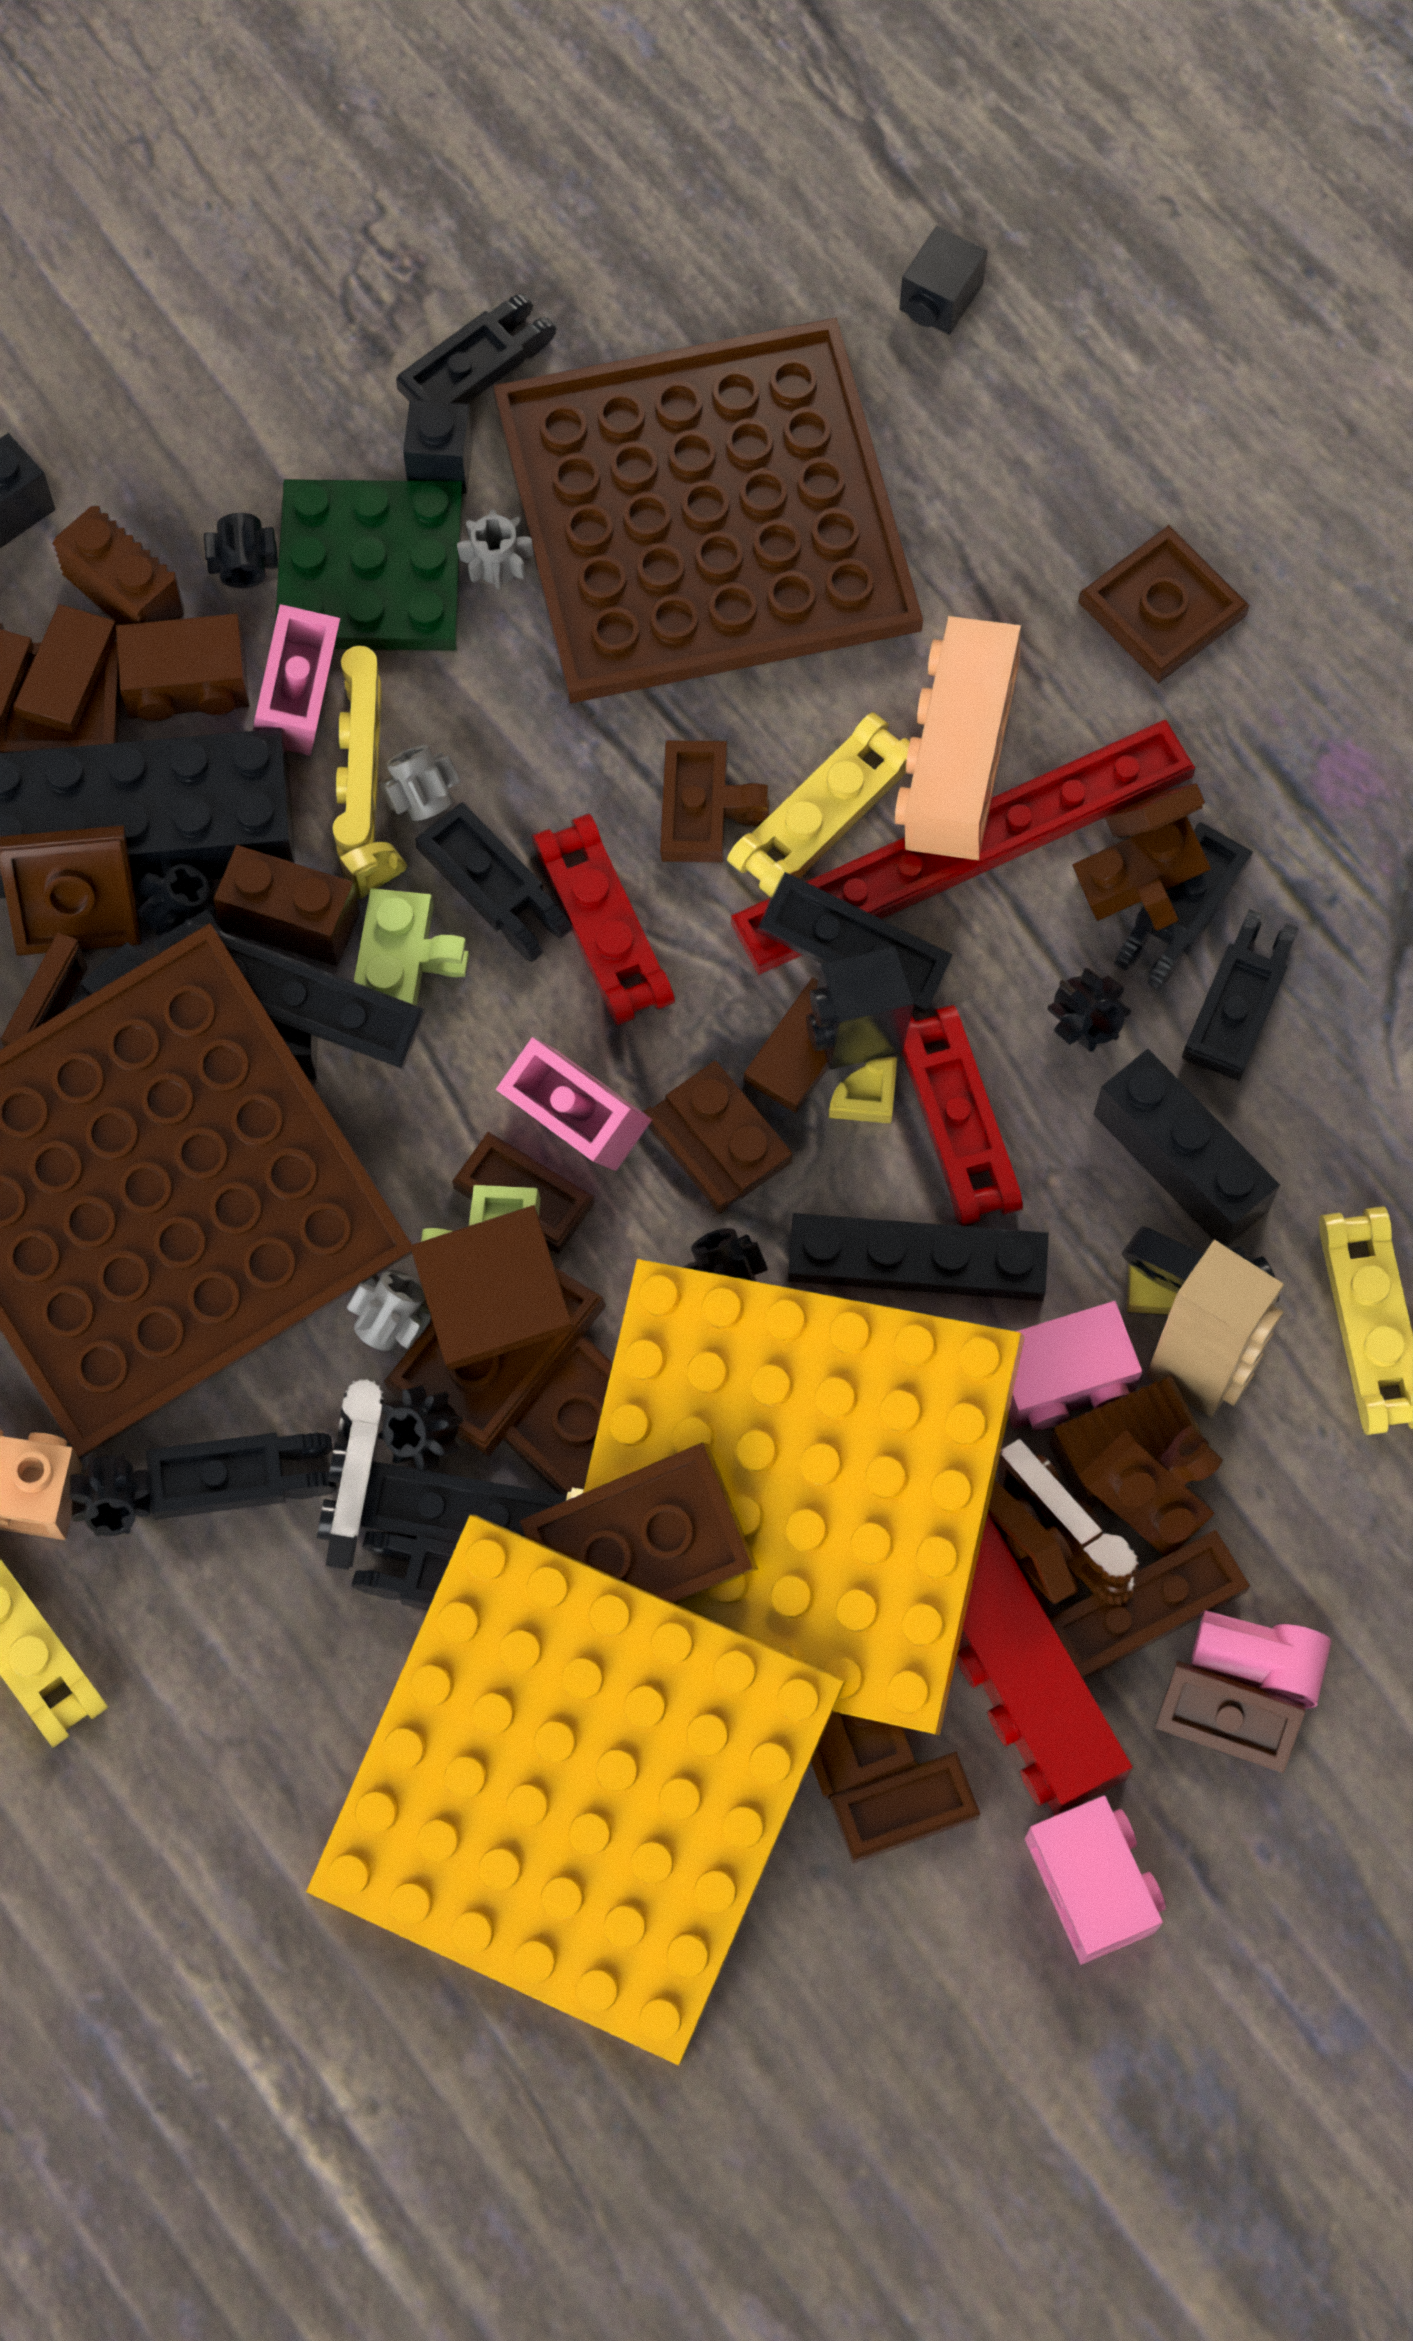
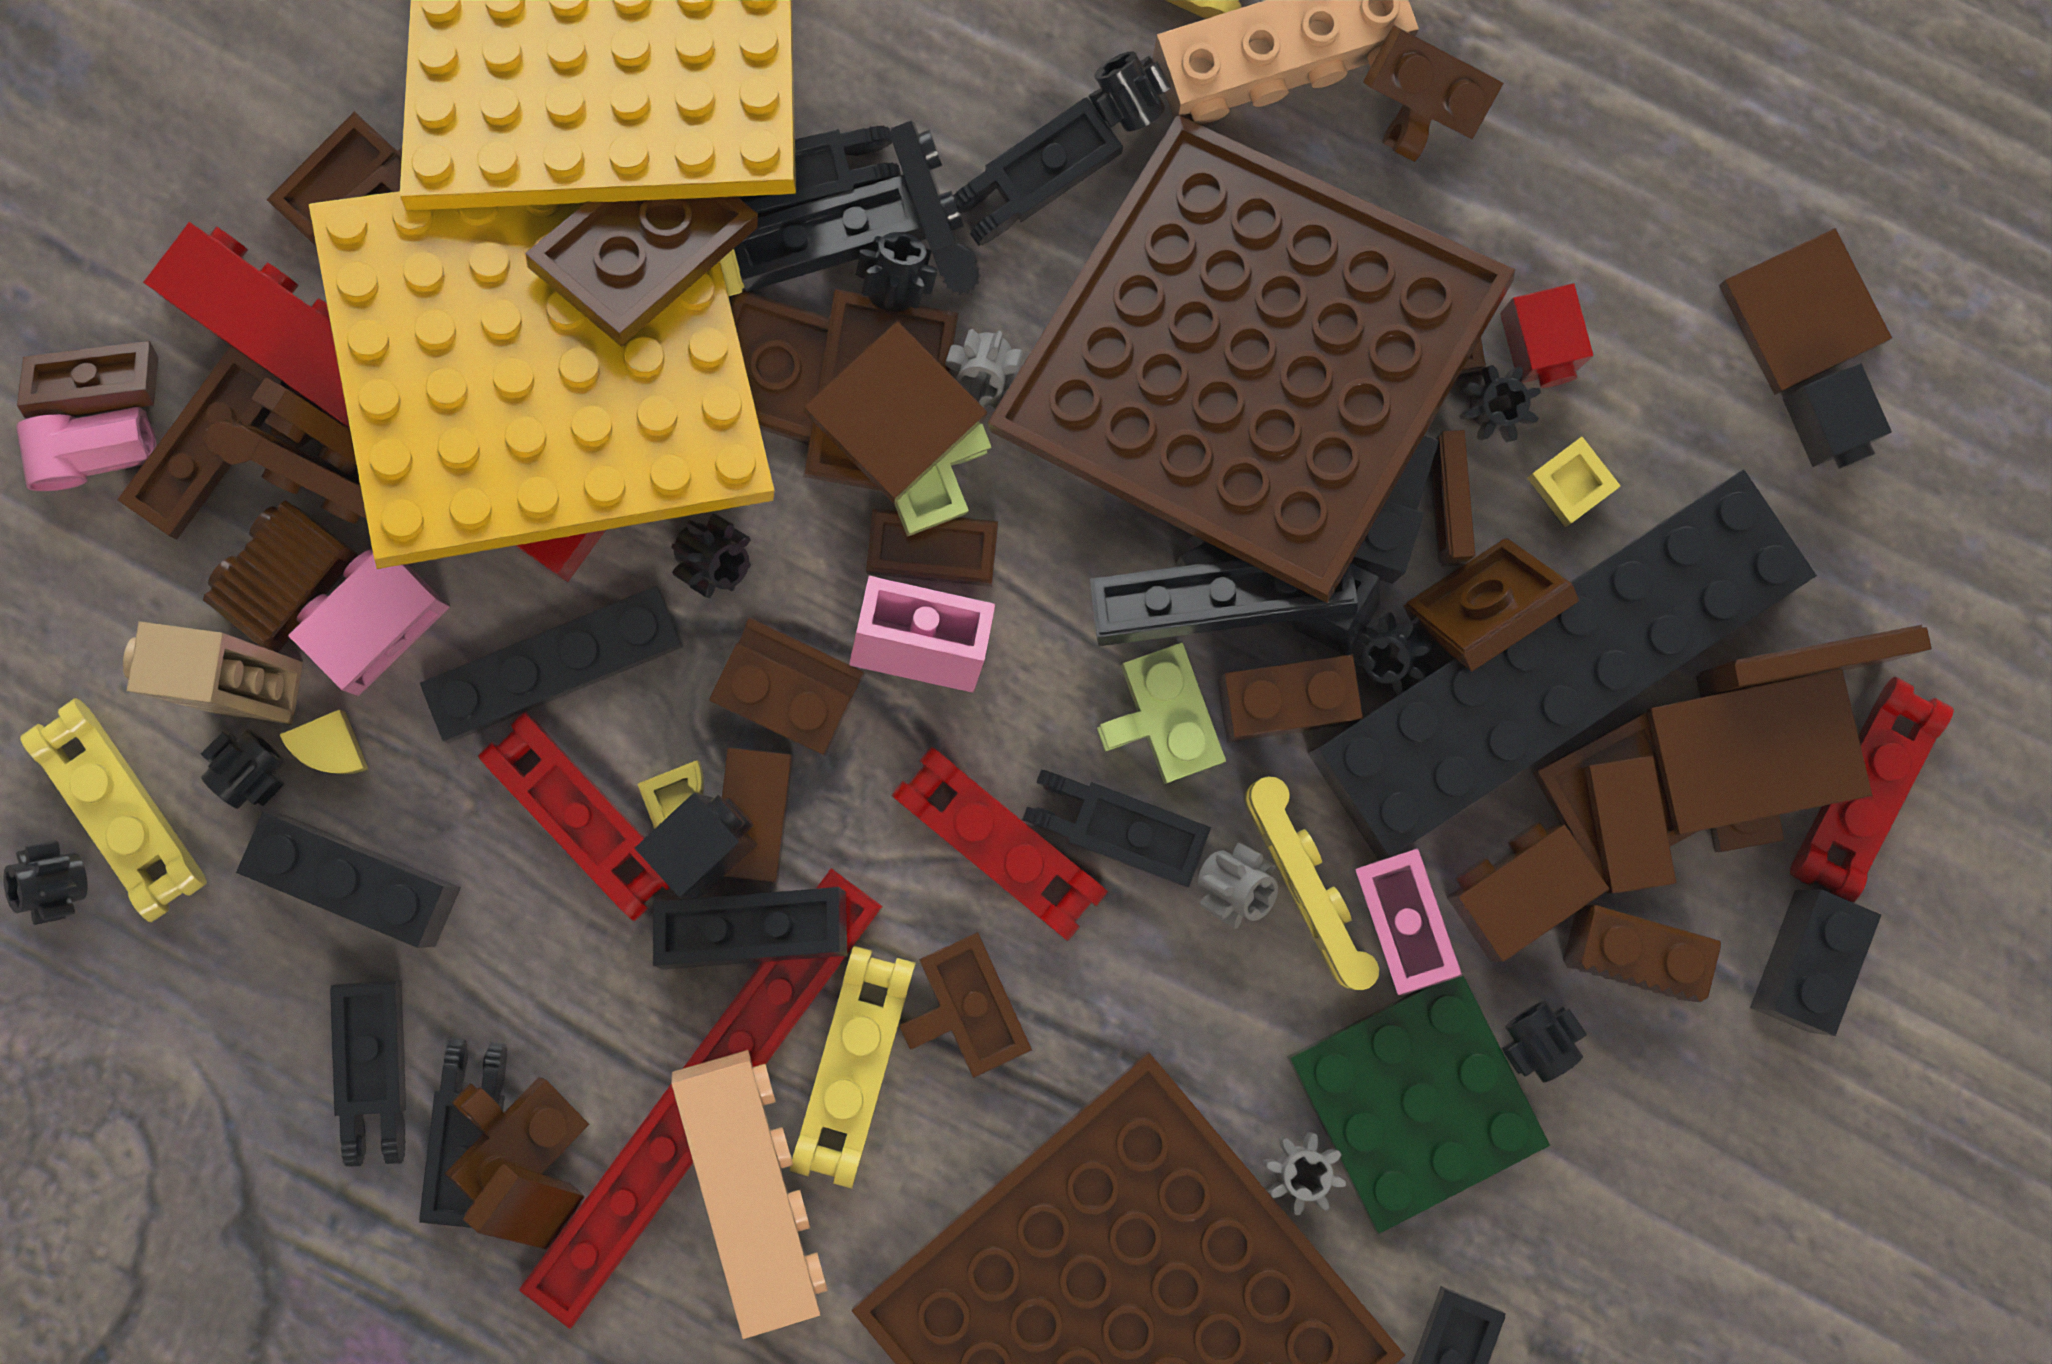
camera: 145 degrees right, 15 degrees up
(371, 866) = (1235, 784): light yellow tile -> none
(438, 442) = (1421, 1257): black brick -> none
(1089, 1009) = (500, 974): black gear -> none
(1095, 1878) = (140, 184): bright pink brick -> none
(1153, 1490) = (227, 530): reddish brown plate -> none
(1161, 1258) = (294, 745): black beam -> none

